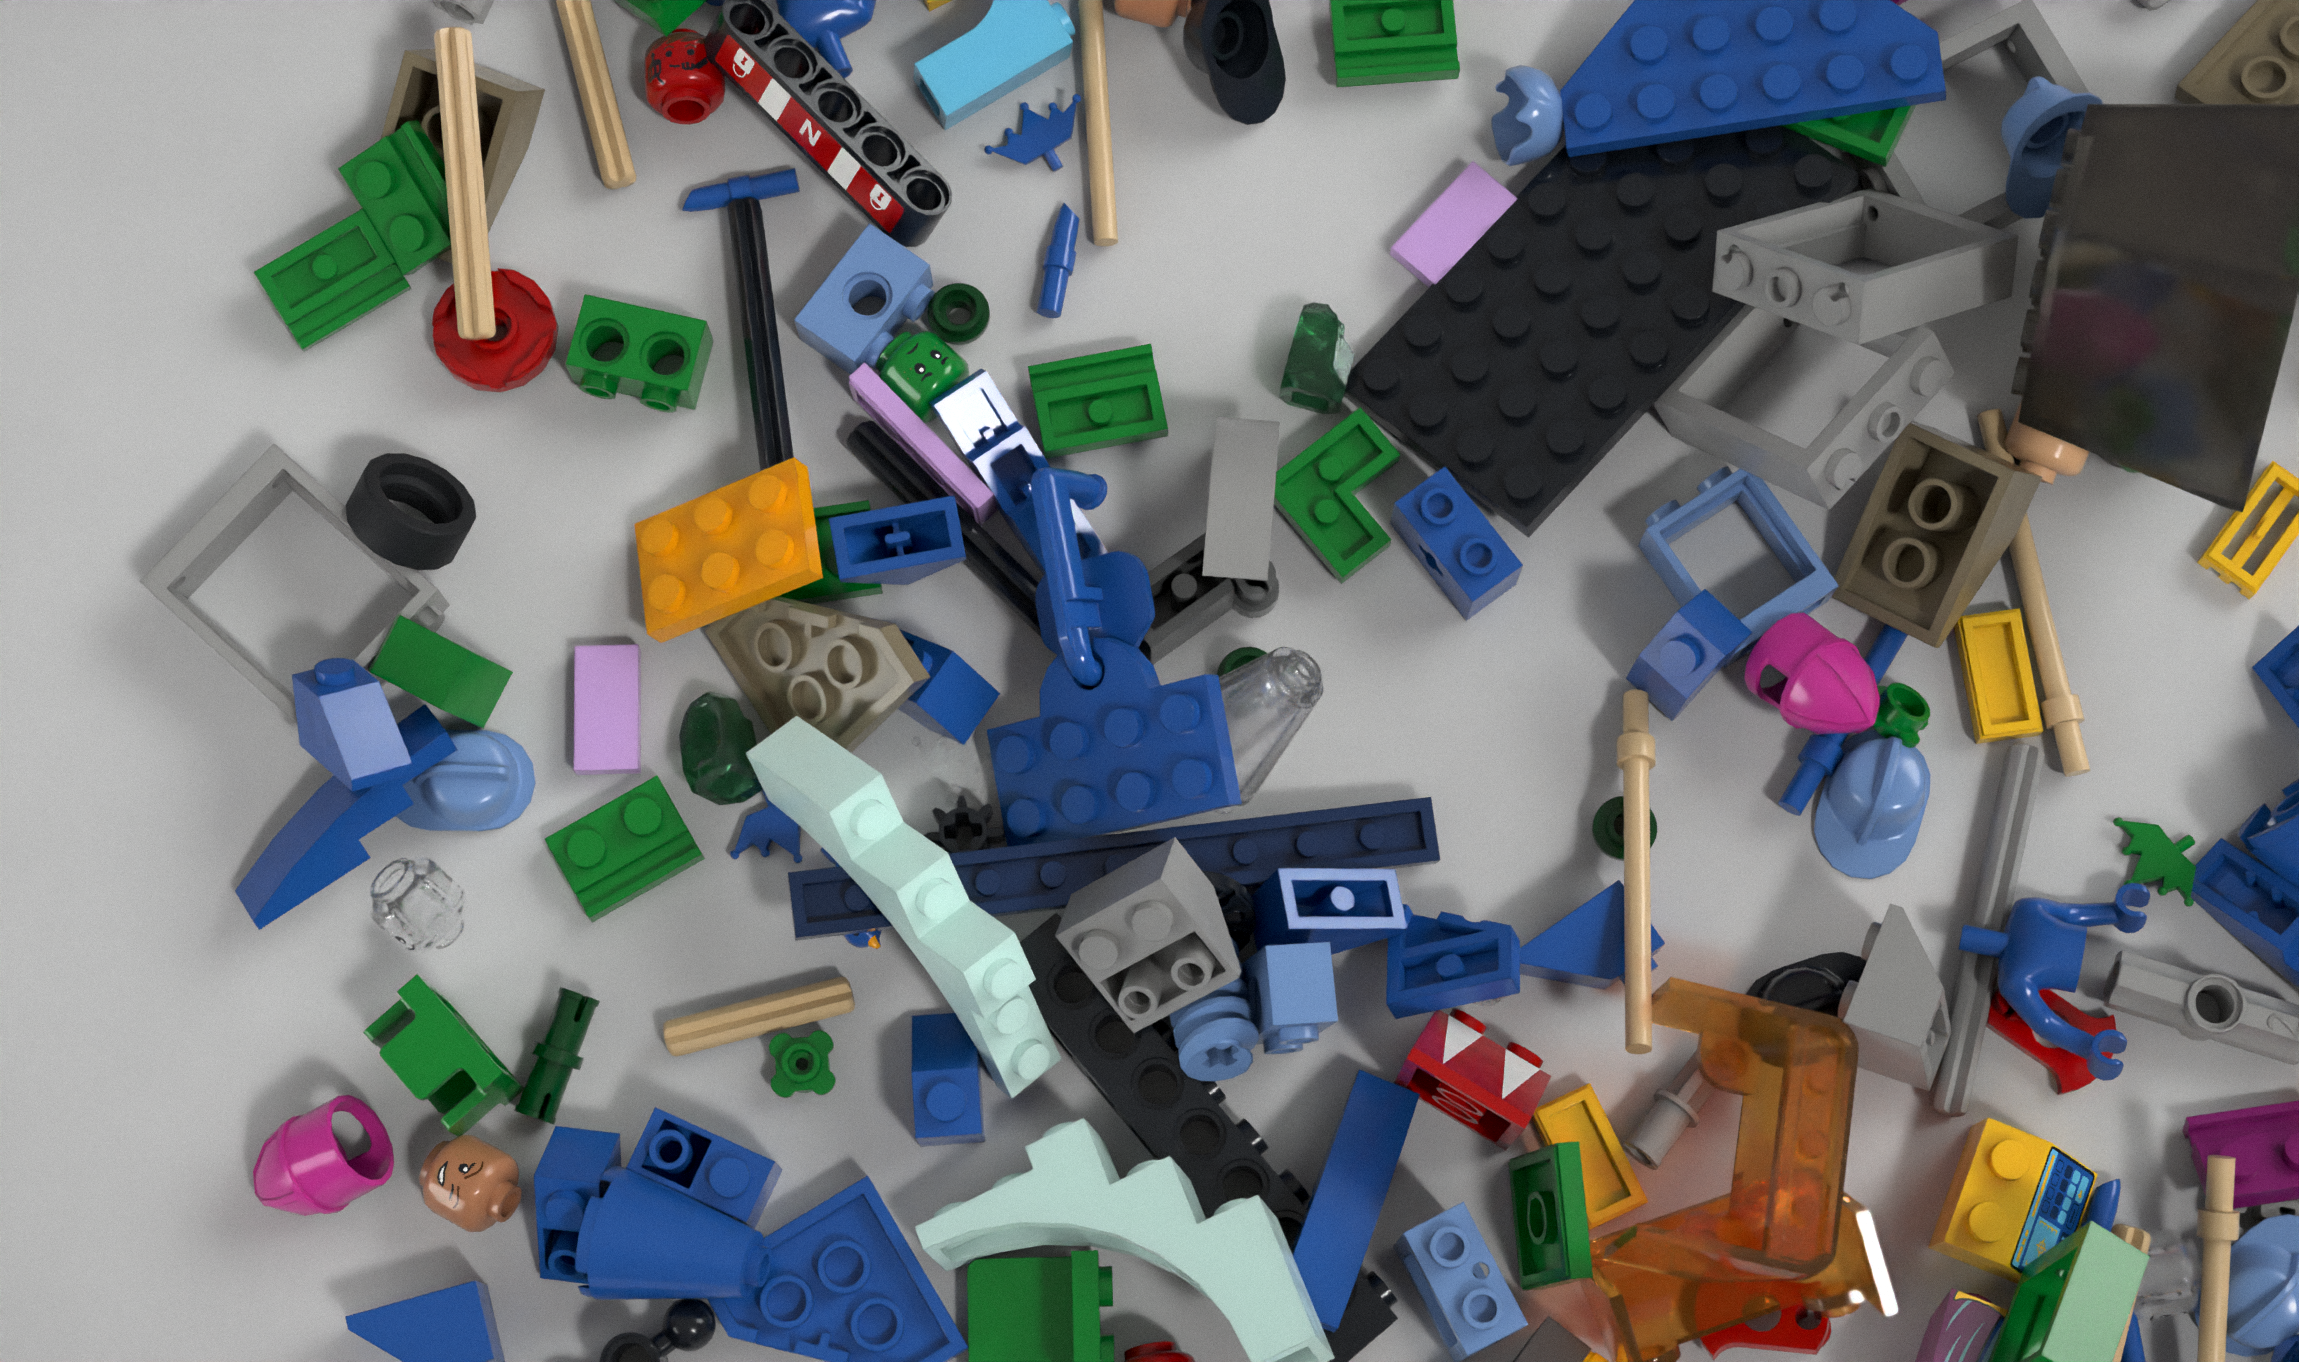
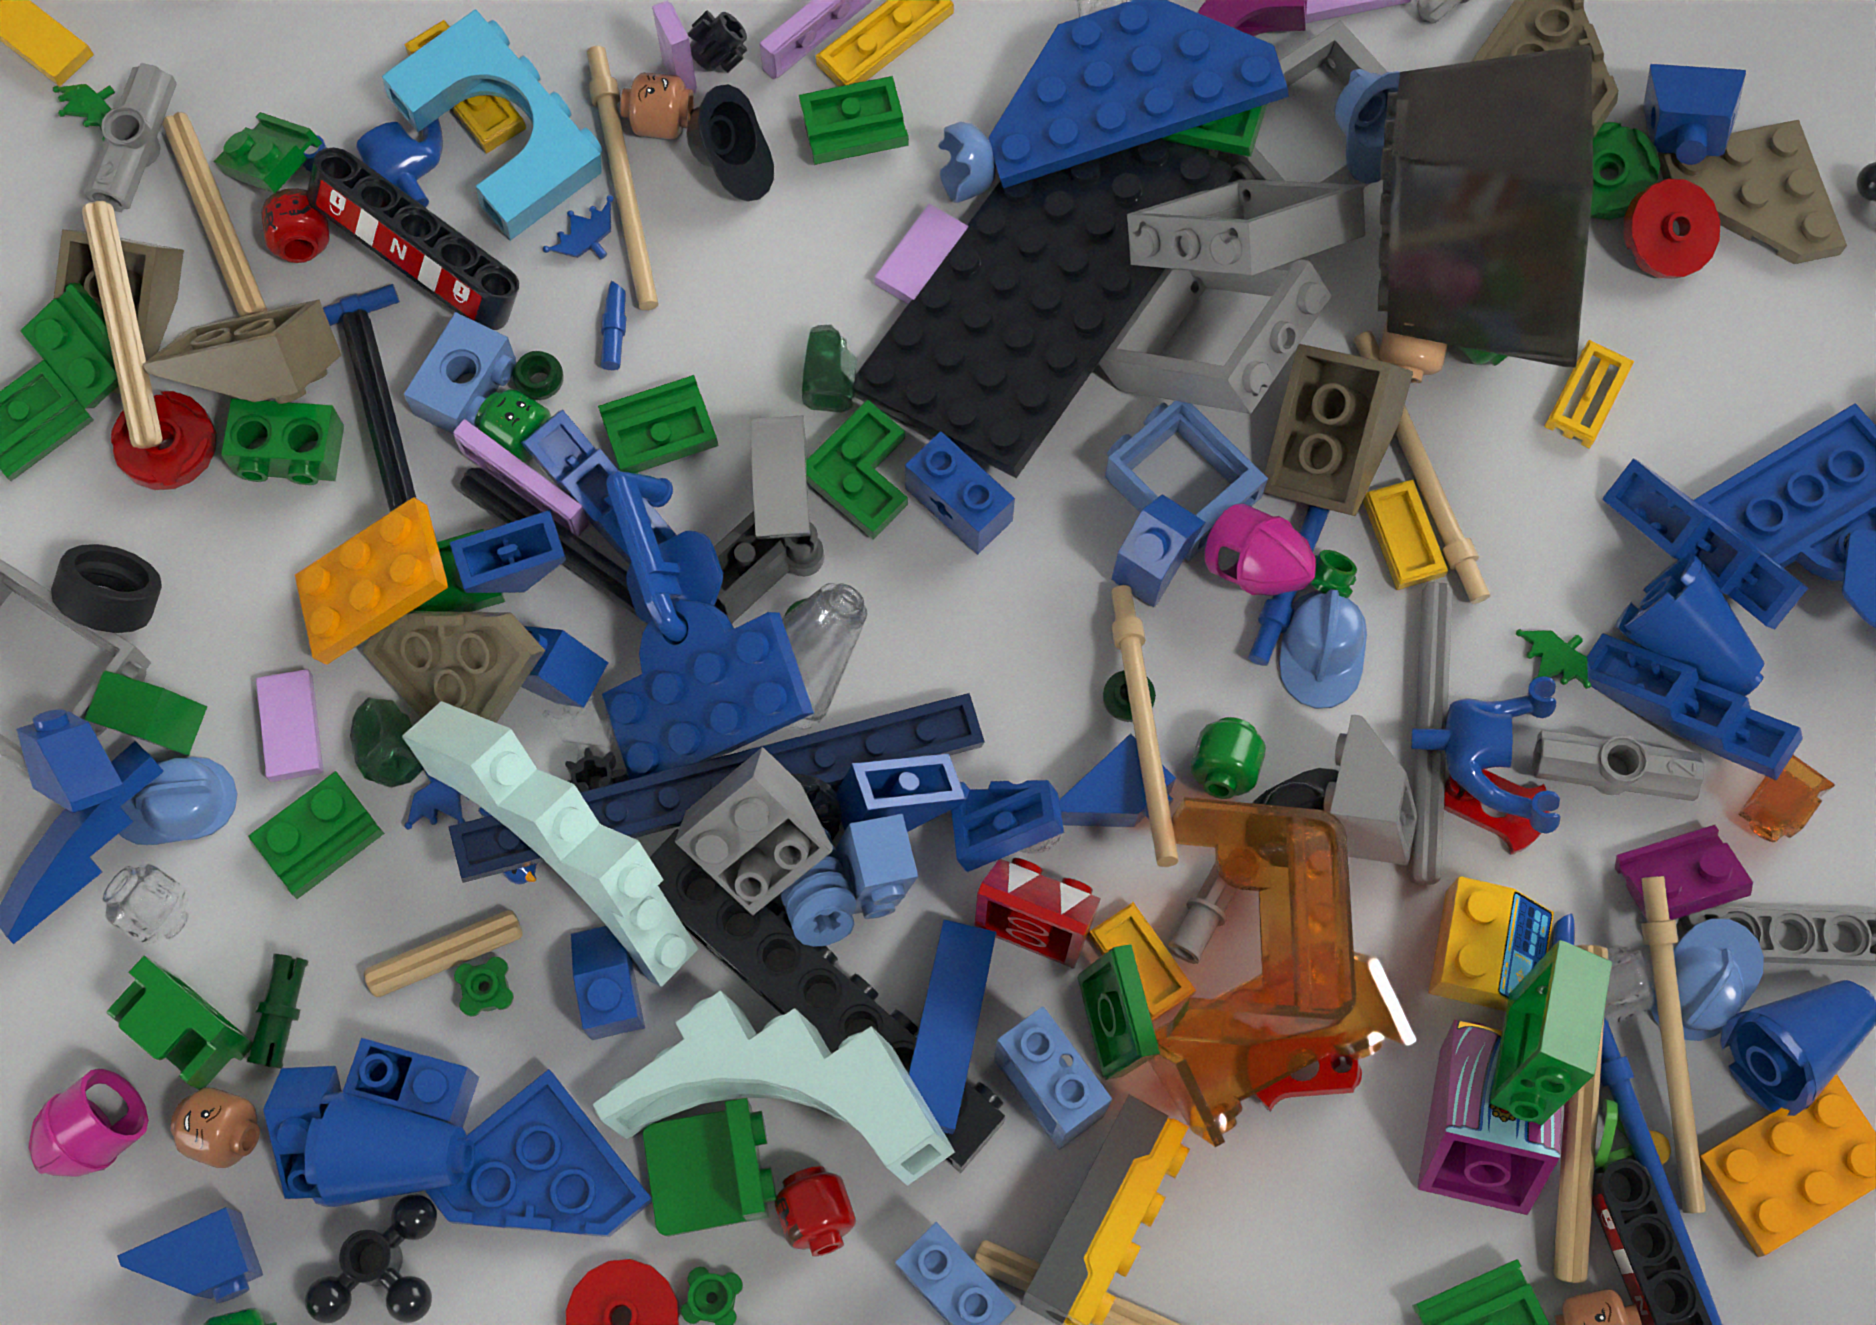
camera: 10 degrees left, 5 degrees down
(615, 240) = (253, 354): none -> dark tan slope
(1733, 925) = (1228, 758): none -> green head

